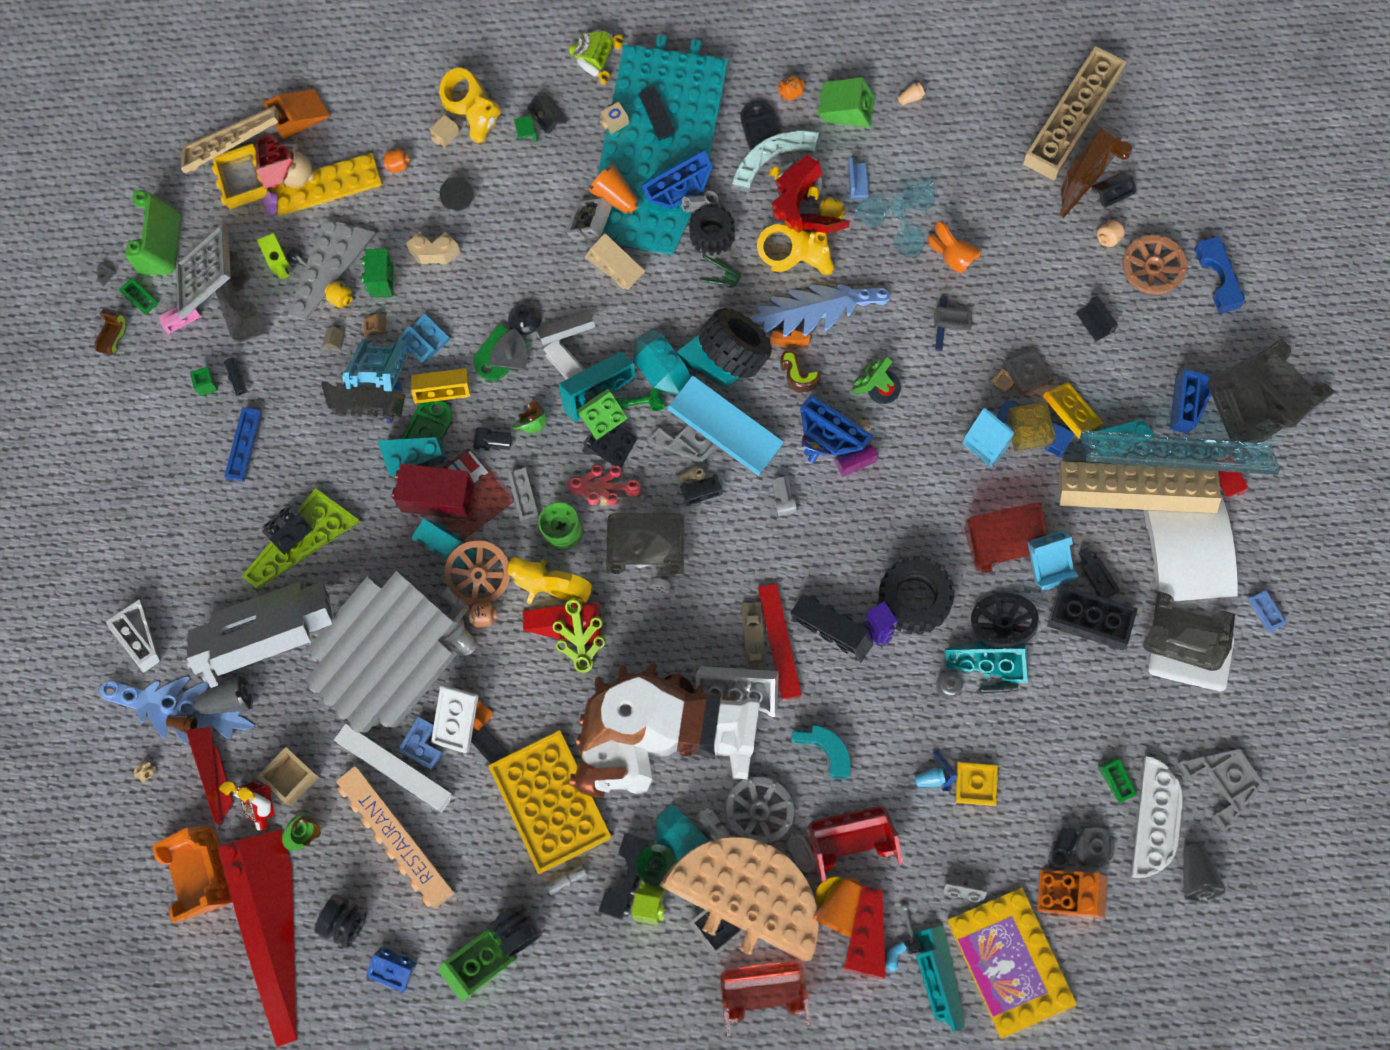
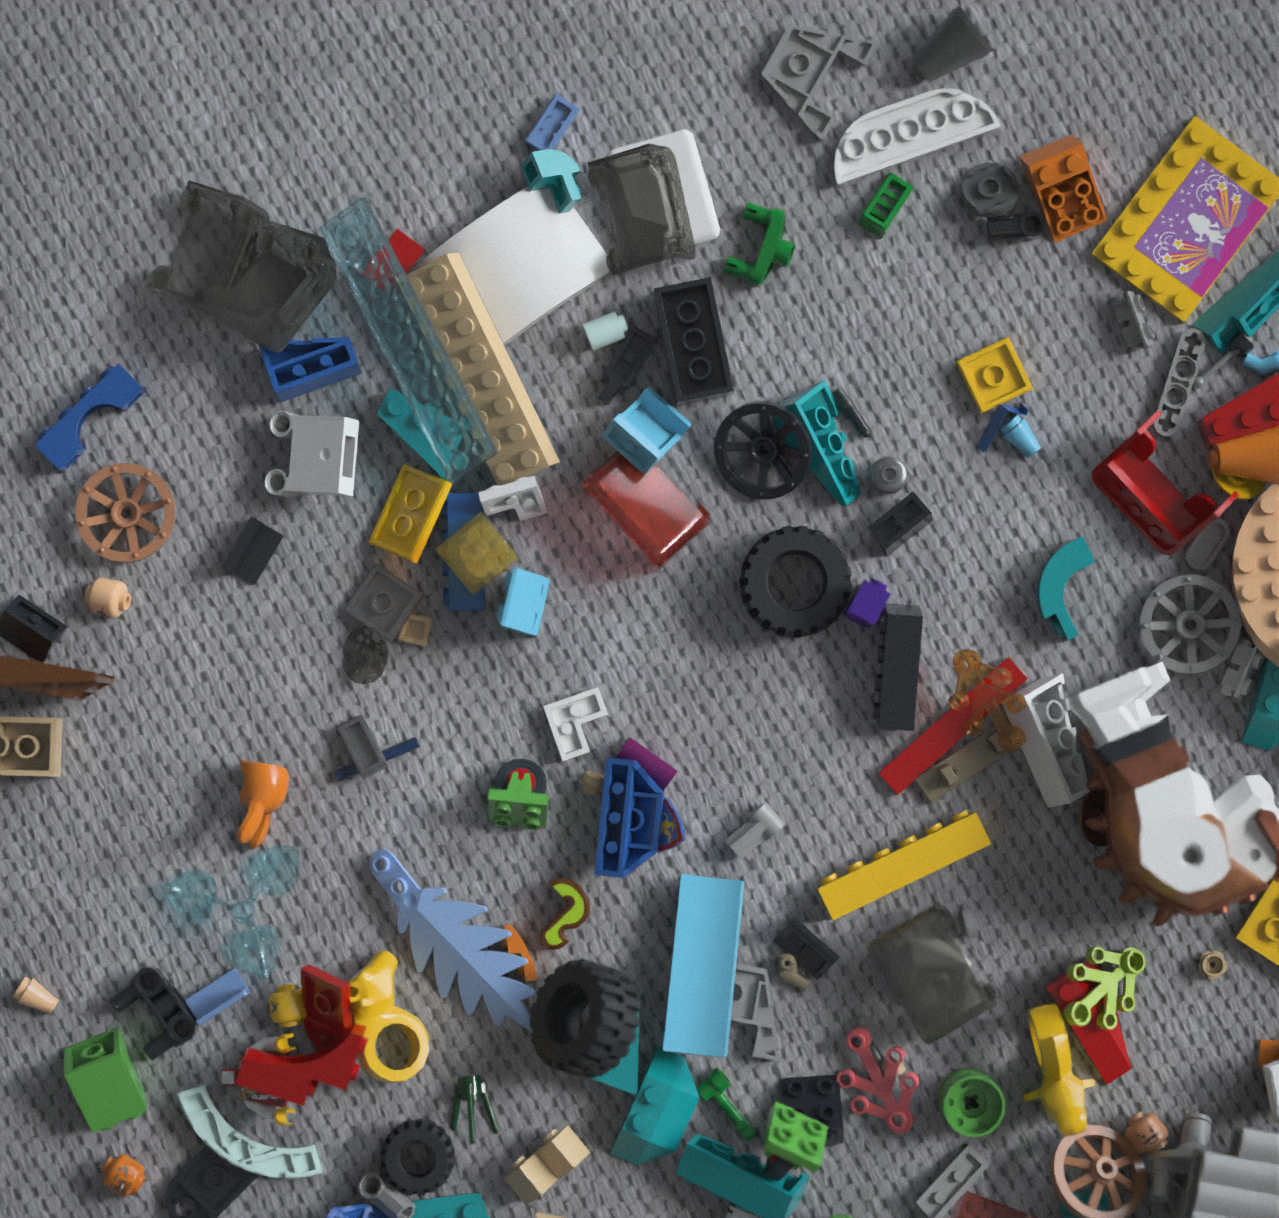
camera: 130 degrees left, 15 degrees up
(553, 704) = (1220, 964): none -> tan plate
(667, 291) = (547, 1164): none -> tan brick
(715, 567) = (904, 865): none -> yellow brick
(806, 663) = (986, 697): none -> clear orange plant
(869, 151) = (165, 1005): none -> black piece
(907, 433) = (566, 720): none -> white plate
(913, 892) = (1183, 384): none -> light grey beam
(916, 676) = (900, 523): none -> black hinge
(1004, 345) = (357, 652): none -> clear smoke dish
(1053, 469) = (521, 494): none -> white plate
(1124, 696) = (773, 250): none -> green connector
(1125, 573) = (605, 330): none -> light aqua brick
(1134, 376) = (319, 458): none -> white piece
(1238, 595) = (553, 171): none -> teal brick

